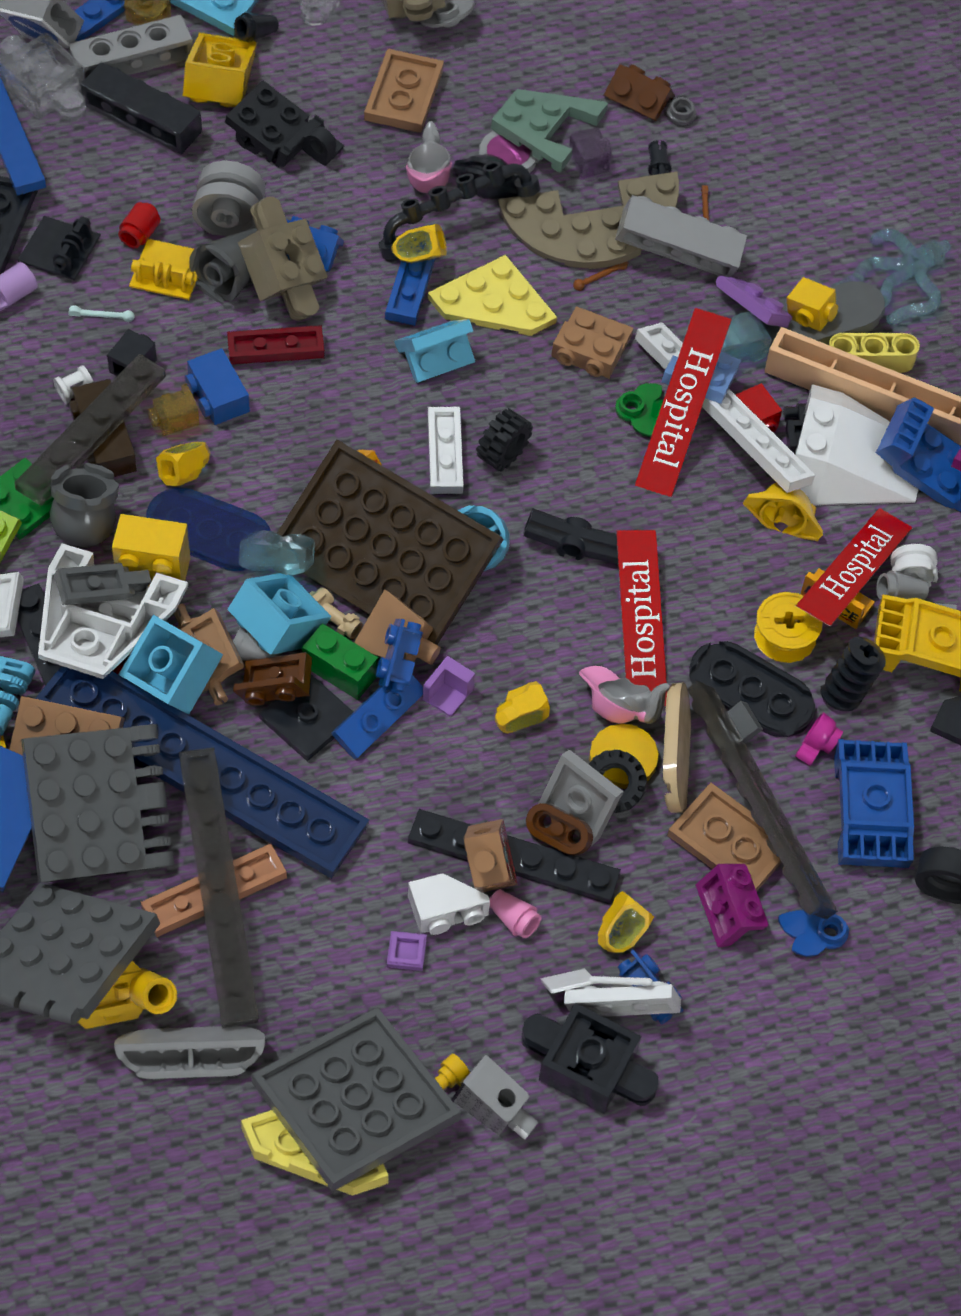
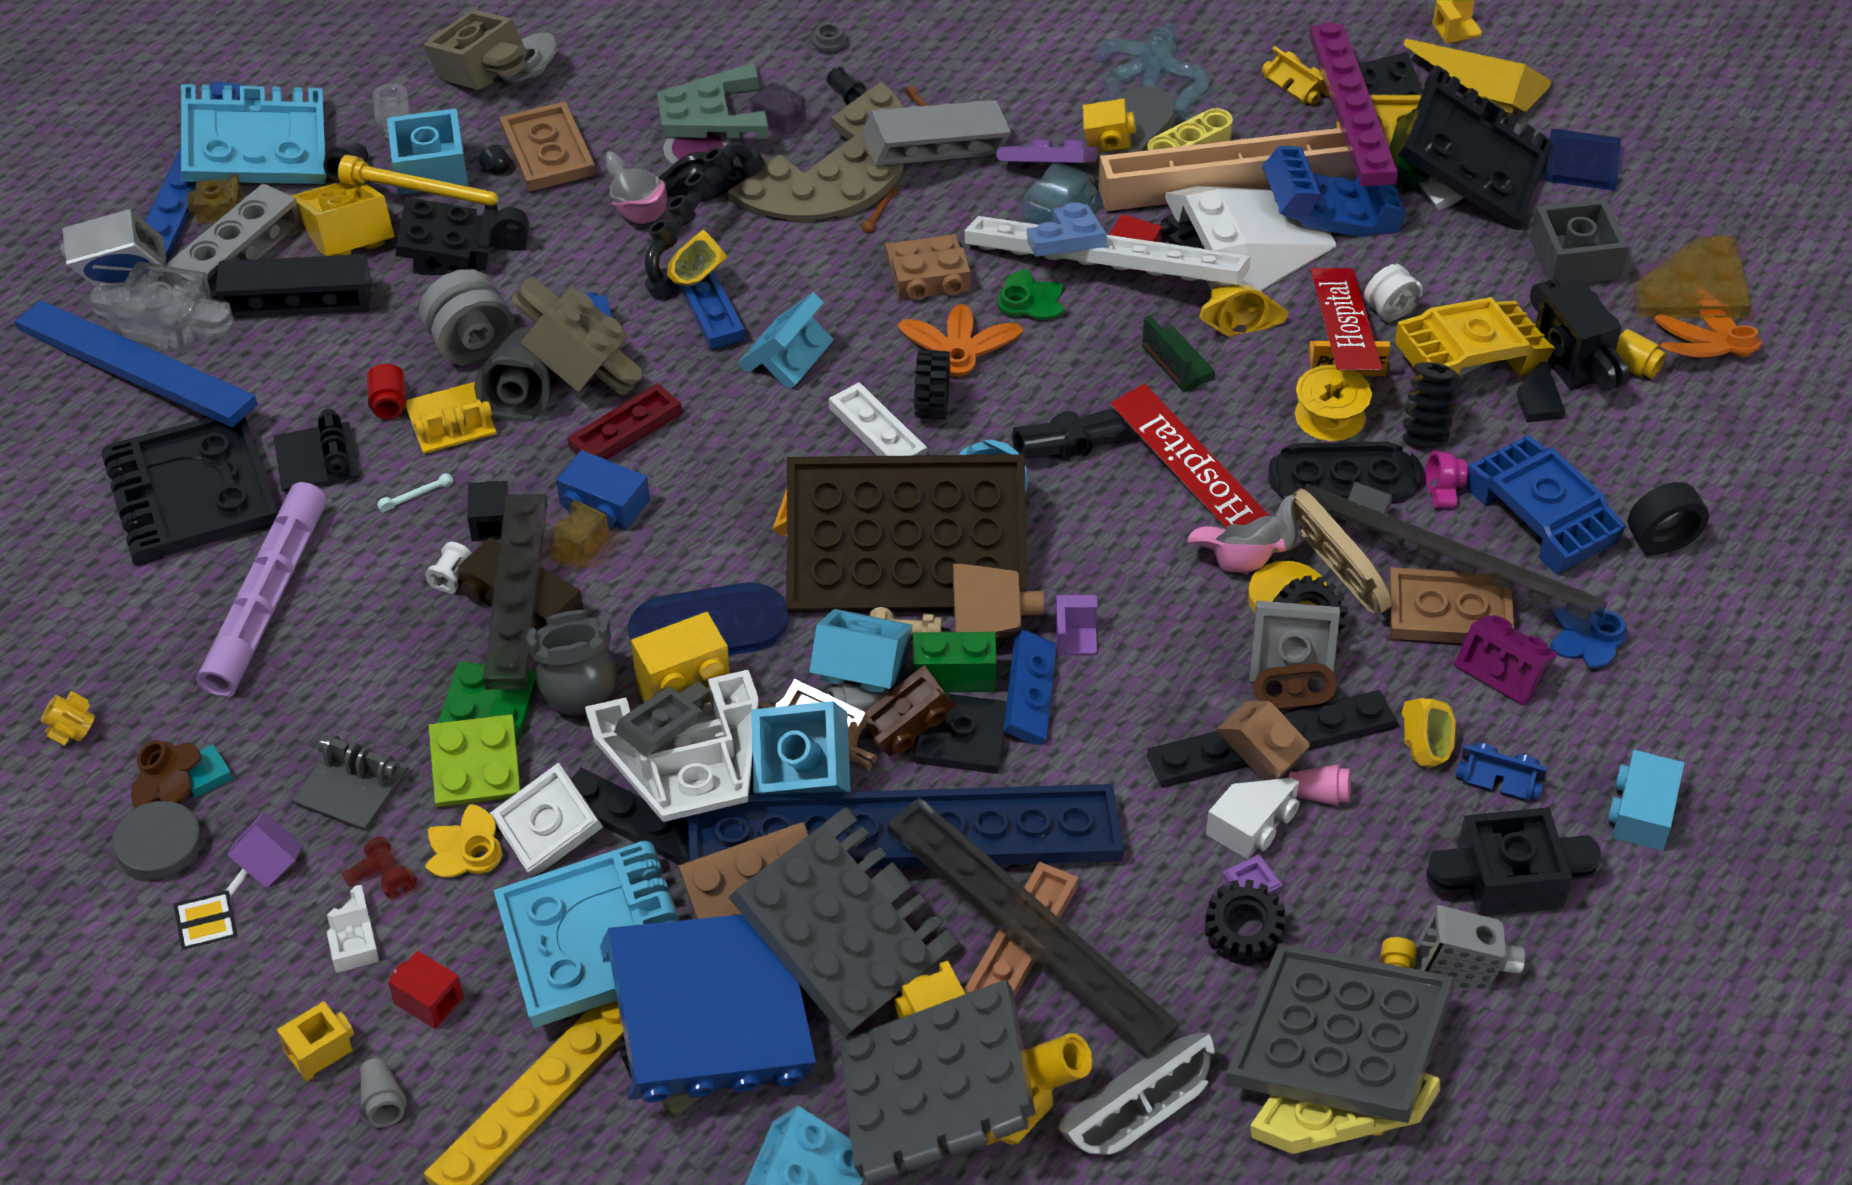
camera: 30 degrees left, 10 degrees down
(119, 888) = (928, 991): none -> yellow brick
(182, 463) = (629, 577): yellow rock -> none
(249, 39) = (355, 171): none -> yellow piece
(269, 550) = (800, 601): clear light blue brick -> none
(312, 50) = (428, 147): none -> medium azure brick
(359, 81) = (495, 160): none -> black hinge
(362, 957) = (1250, 899): none -> black tyre
(399, 641) = (1018, 633): blue hinge -> none
(494, 299) = (794, 271): light yellow plate -> none
(522, 708) = (1162, 602): yellow rock -> none
(561, 416) = (959, 342): none -> orange plant
(582, 978) = (1432, 806): white piece -> none
(626, 999) = (1500, 788): white plate -> none
(638, 92) = (775, 39): reddish brown bracket -> none
(683, 402) = (1073, 262): red sticker -> none
(709, 521) = (1175, 355): none -> dark green panel
(733, 1075) = (1647, 799): none -> medium azure brick
(901, 586) = (1393, 311): light grey cone -> none

